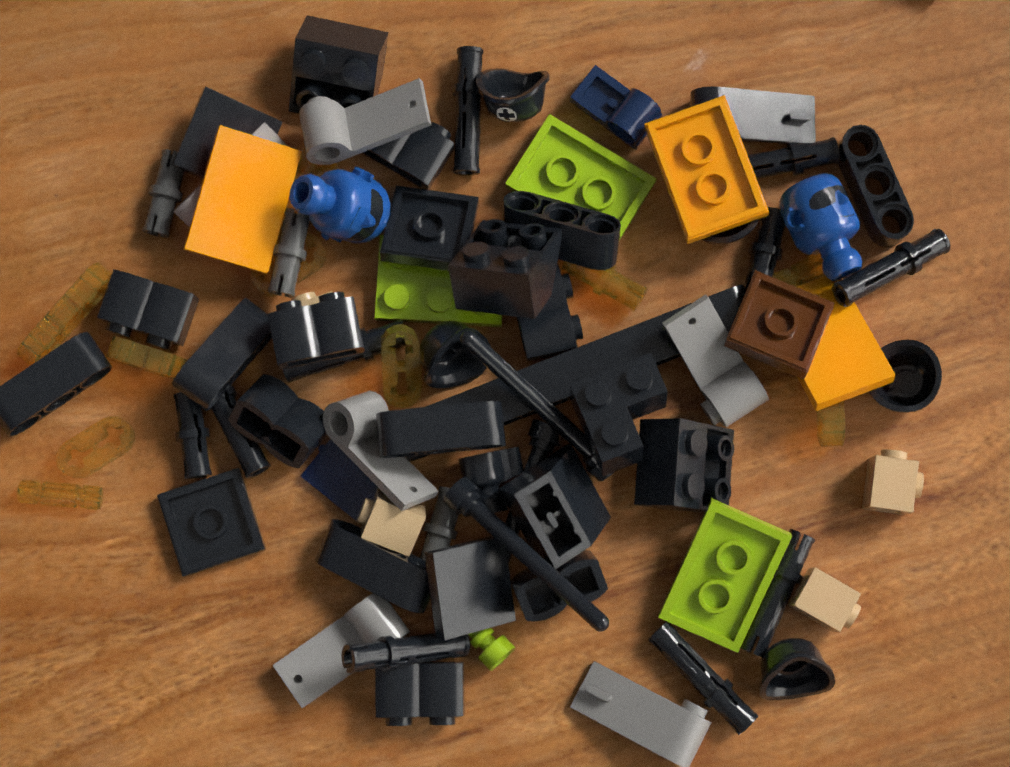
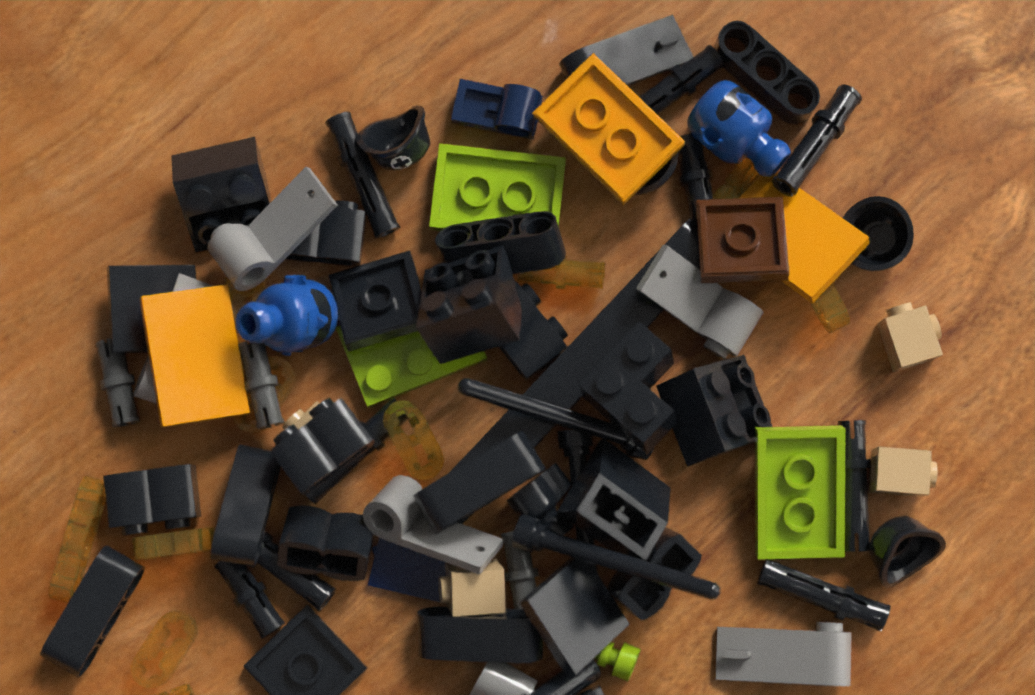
camera: 25 degrees left, 0 degrees up
(446, 359) = (450, 412): black helmet -> none

